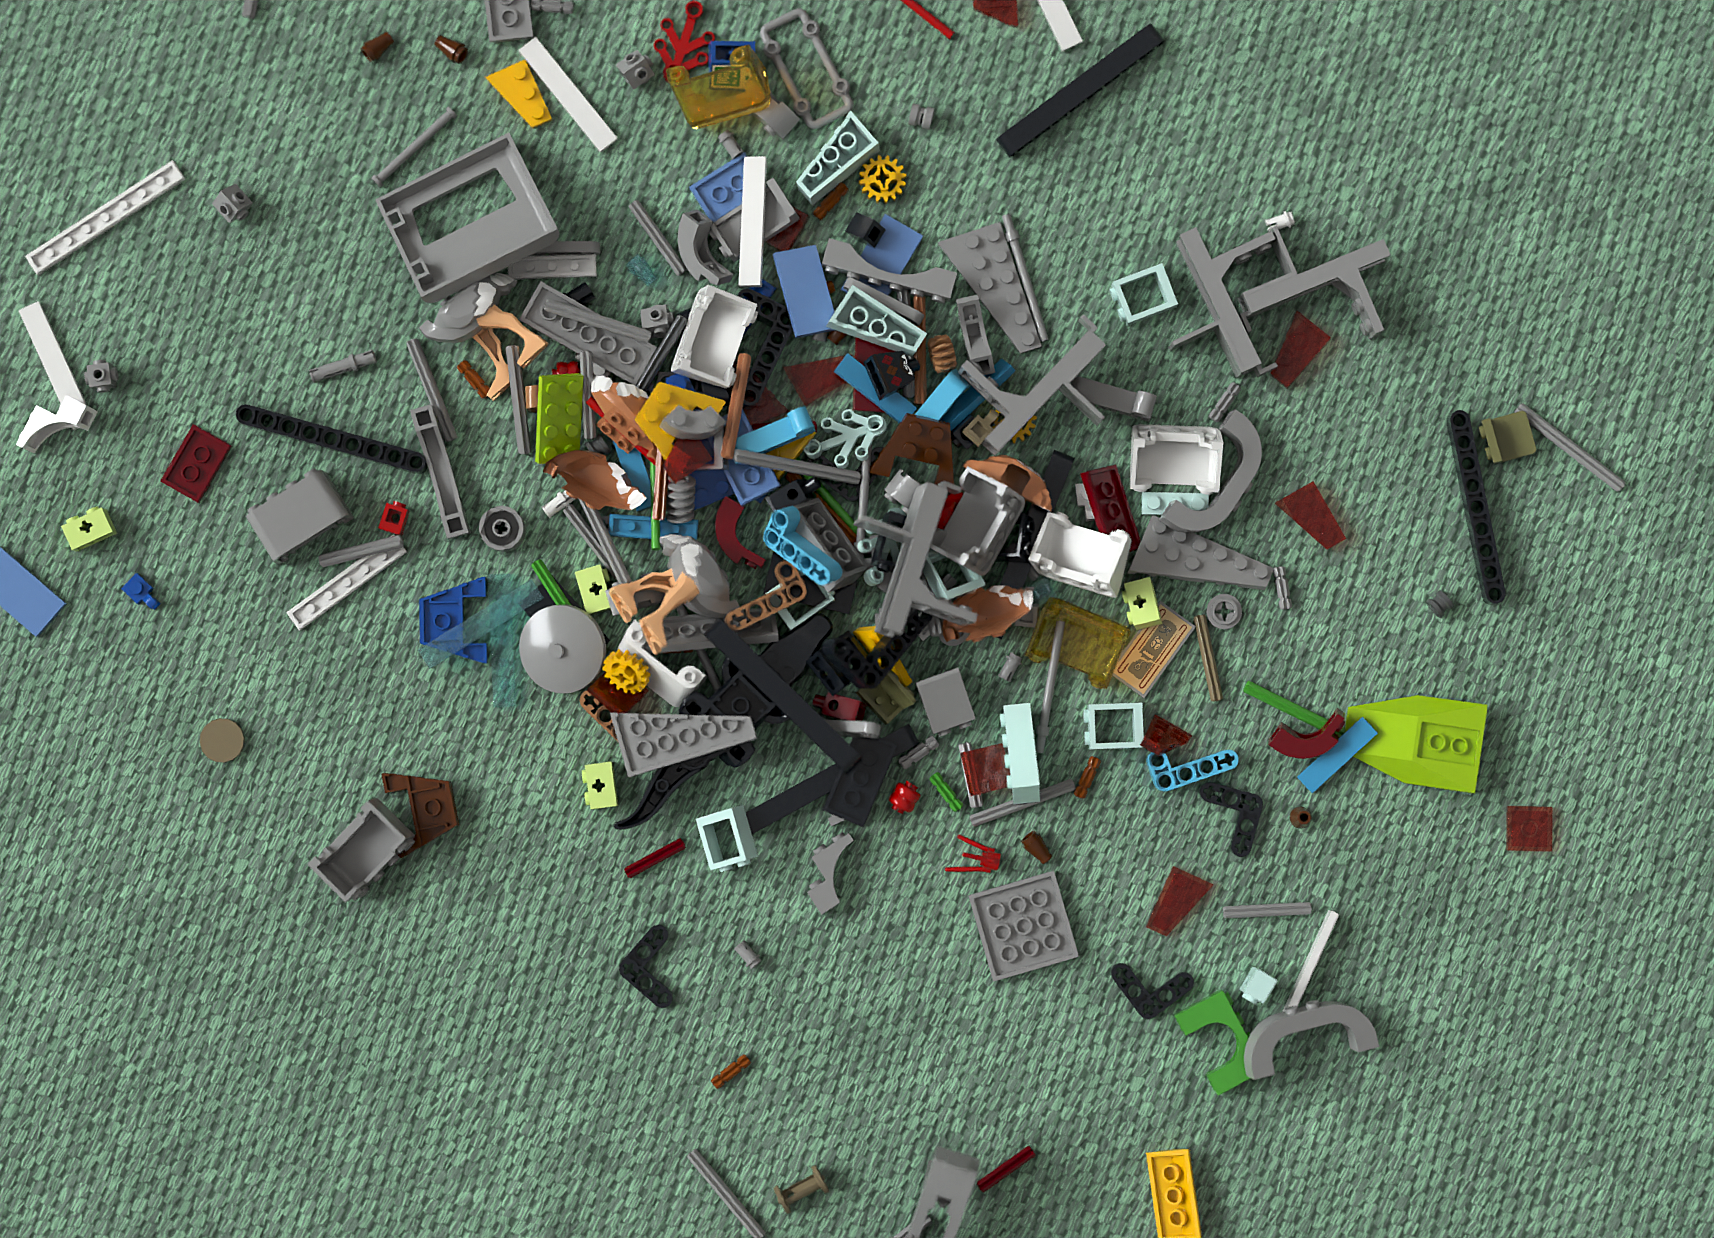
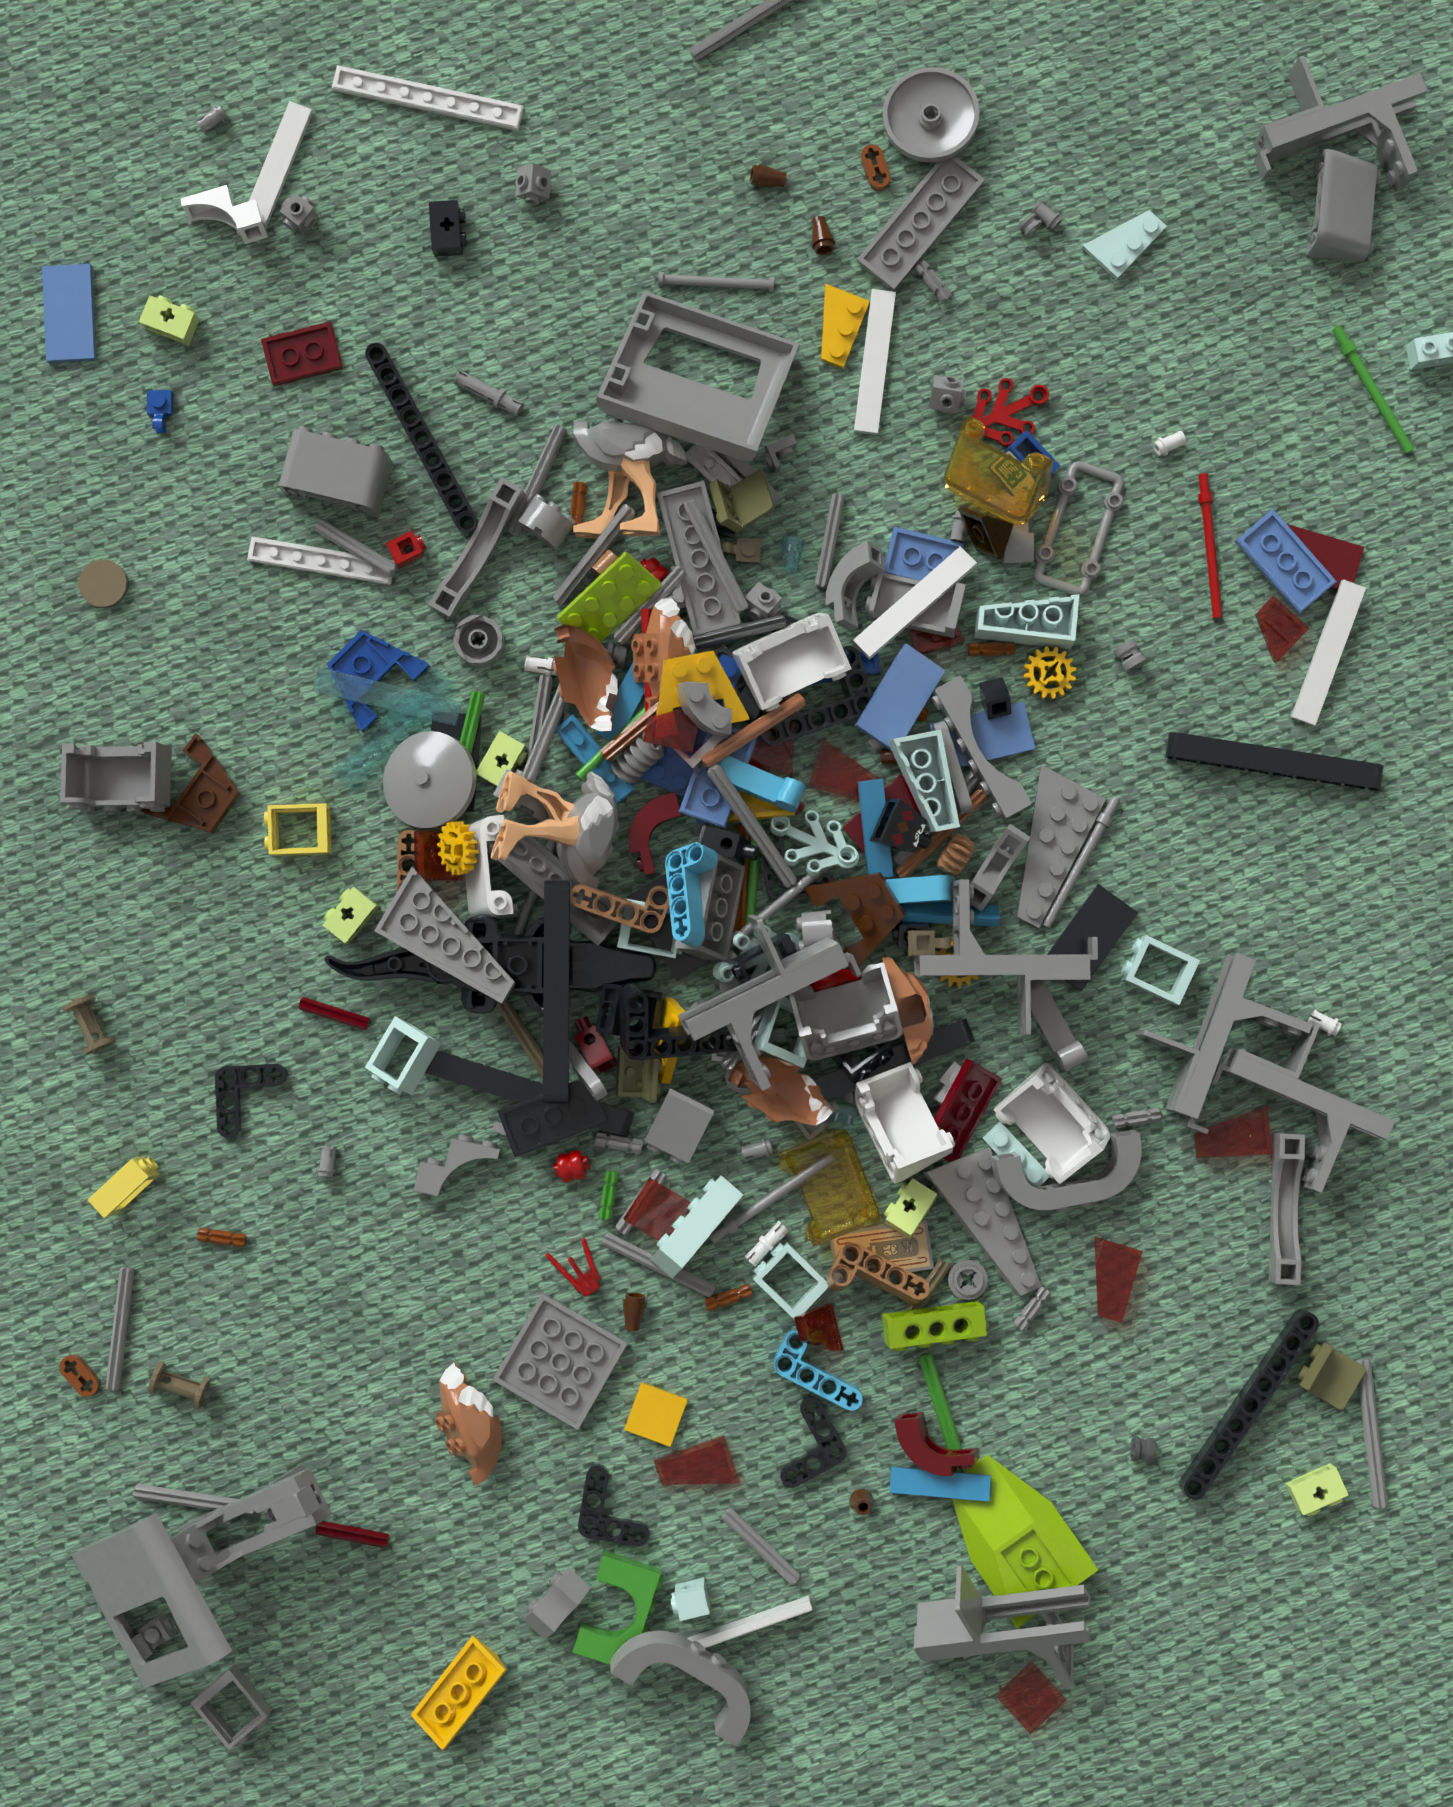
camera: 45 degrees right, 0 degrees up
(194, 283) = (447, 242): none -> black brick
(466, 410) = (546, 522): none -> light grey brick
(507, 1025) = (88, 1024): none -> dark tan hose
(522, 744) = (271, 820): none -> light yellow window
(567, 209) = (782, 447): none -> light grey bracket
(578, 269) = (743, 502): none -> olive bracket
(610, 299) = (745, 550): none -> dark tan plate
(637, 1100) = (124, 1186): none -> light yellow window
(751, 130) = (986, 531): none -> dark brown slope
(790, 748) = (522, 1034): none -> dark tan axle
(1007, 1023) = (469, 1424): none -> nougat animal
(1071, 300) = (1100, 917): none -> black tile
(1076, 718) = (767, 1243): none -> white pin
(1117, 897) = (655, 1414): none -> yellow tile
(1168, 667) = (879, 1279): none -> medium nougat beam
(1177, 1077) = (556, 1603): none -> light grey brick
(1208, 685) = (896, 1324): none -> lime brick
(1357, 346) = (1284, 1240): none -> light grey arch
(1436, 829) = (955, 1625): none -> light grey piece
(1563, 525) = (1304, 1489): none -> yellowish green brick

